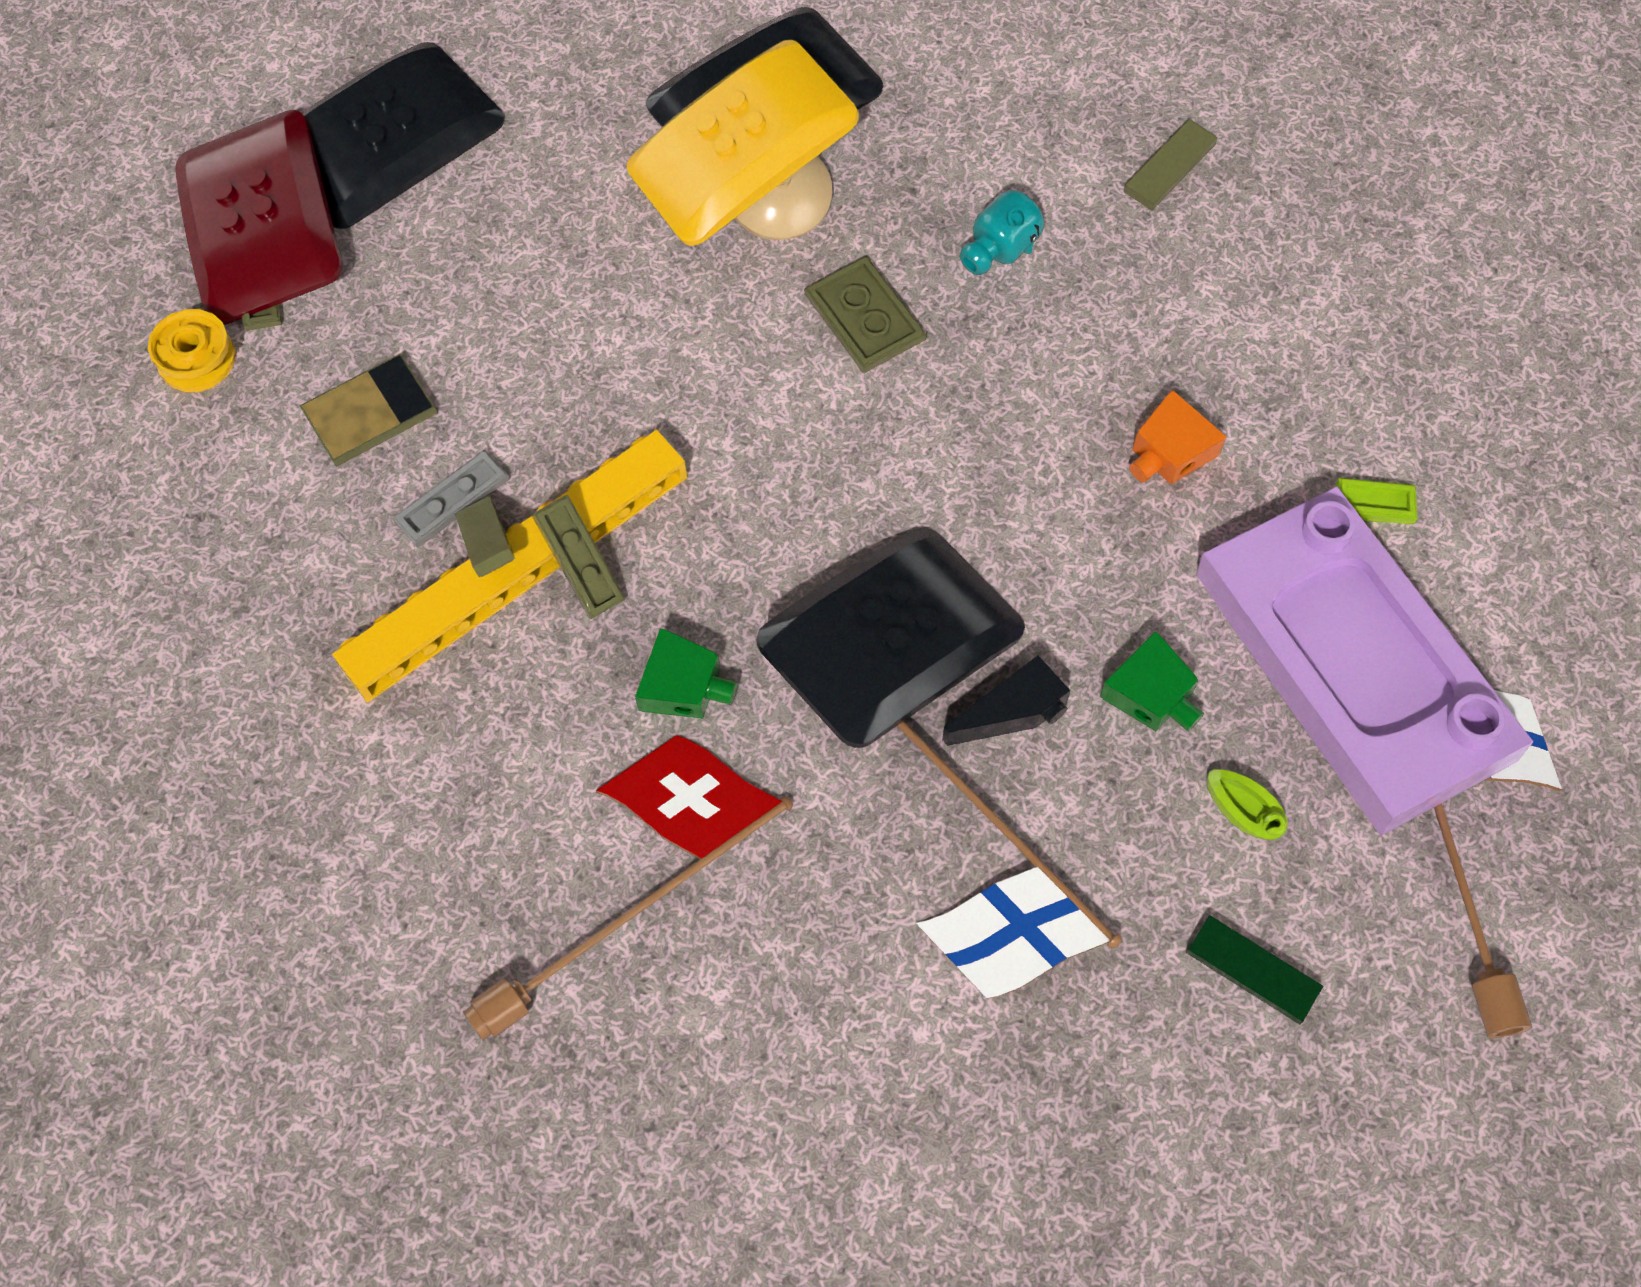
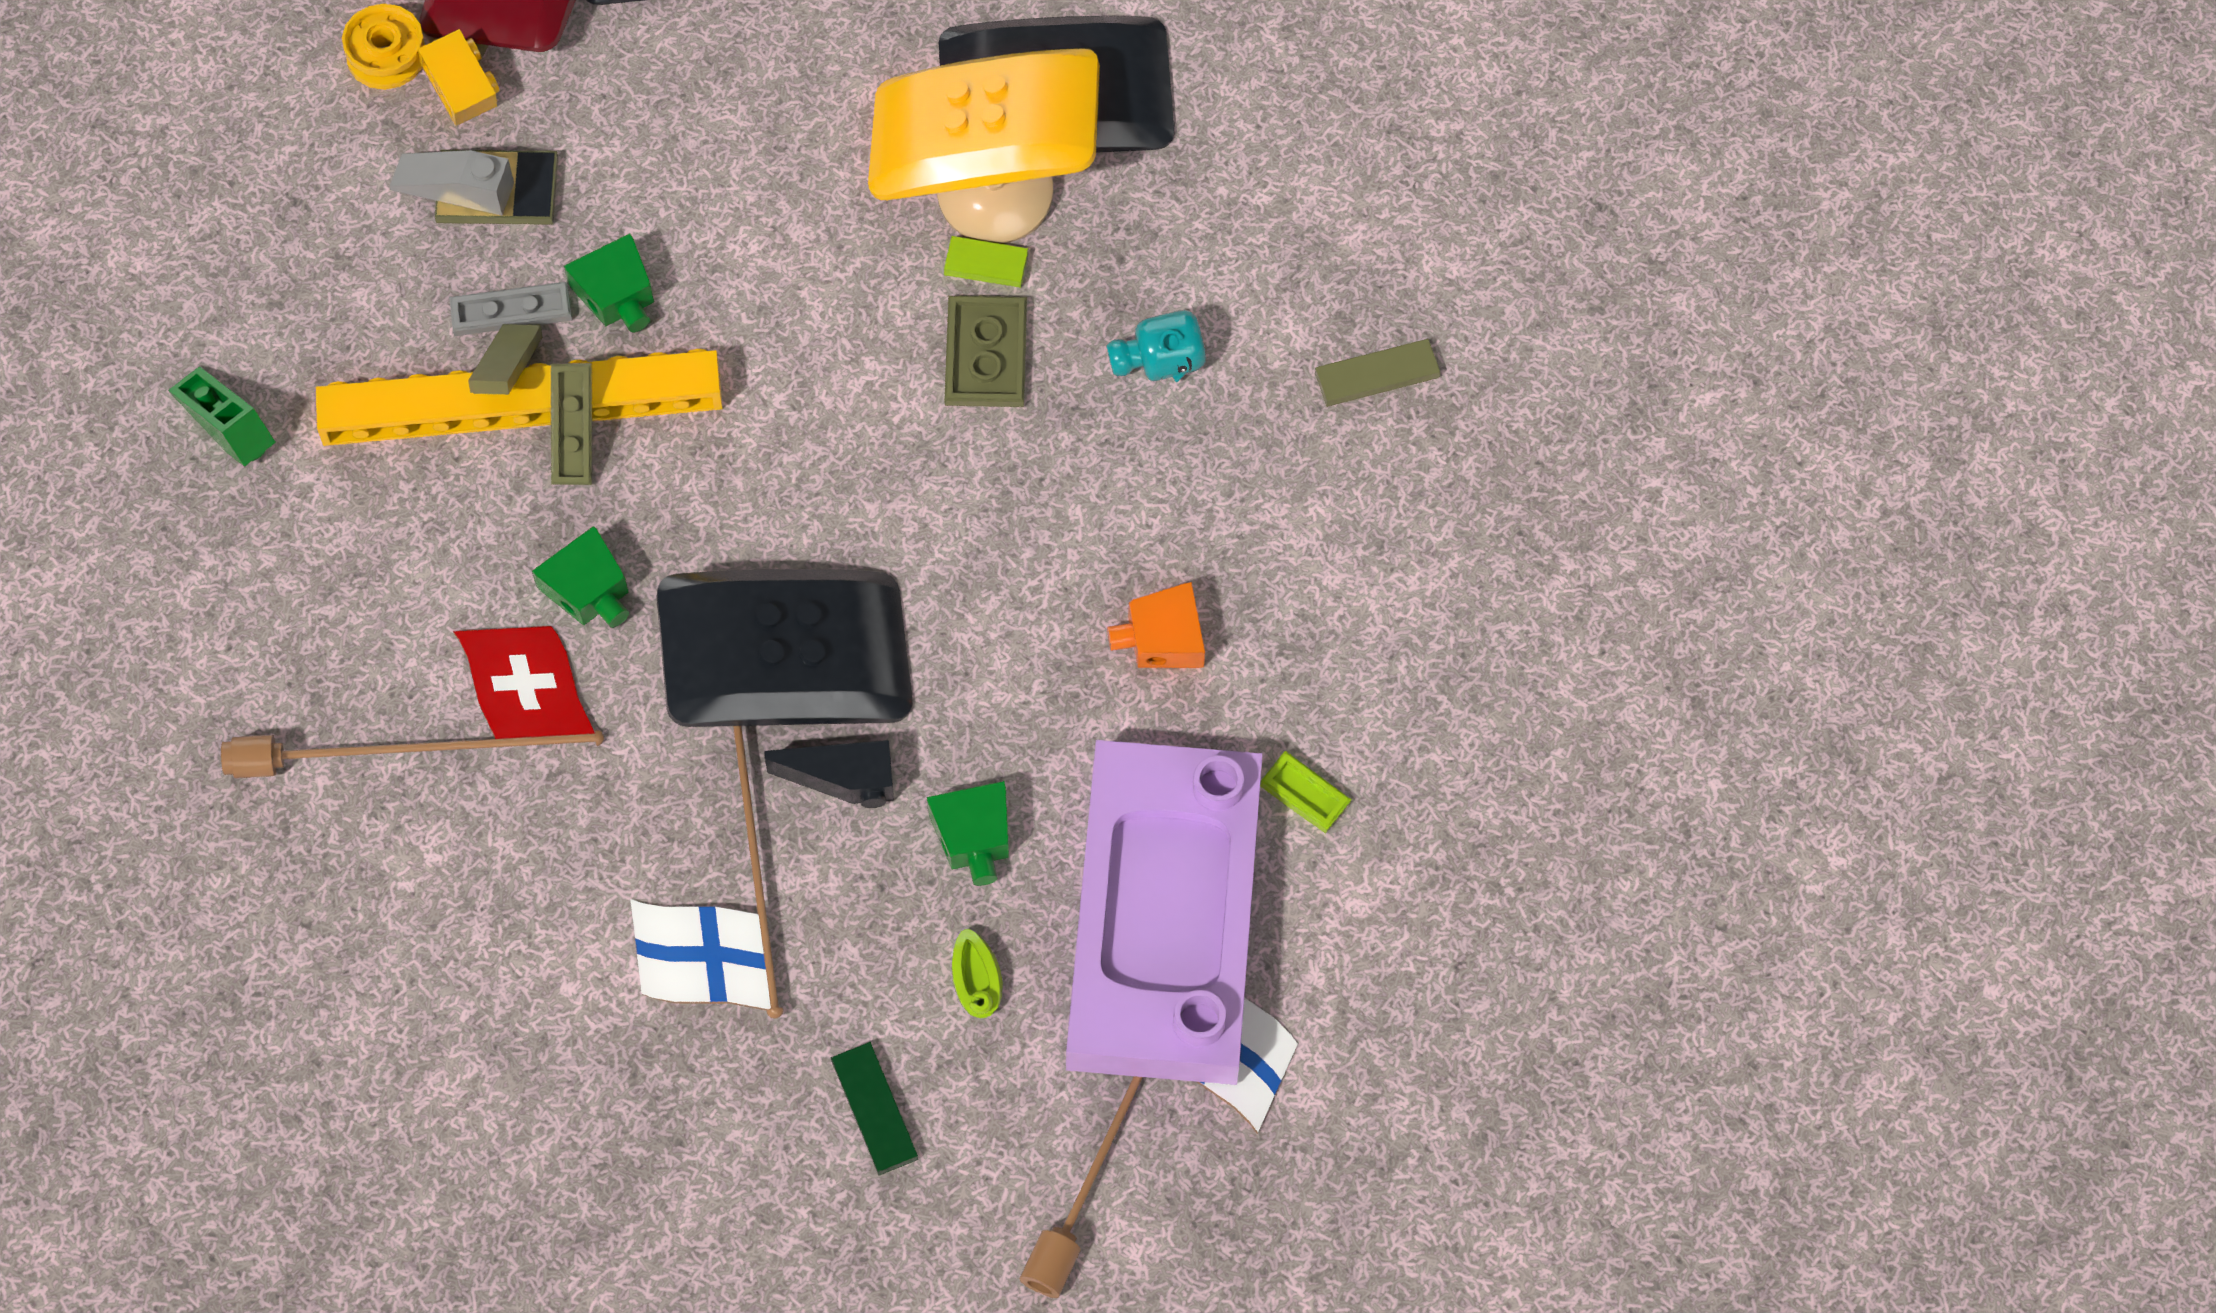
camera: 30 degrees right, 0 degrees up
(261, 727) = (223, 416): none -> green slope
(275, 338) = (458, 77): none -> yellow brick
(331, 417) = (456, 178): none -> light grey slope
(526, 428) = (613, 283): none -> green torso
(812, 248) = (986, 261): none -> lime tile

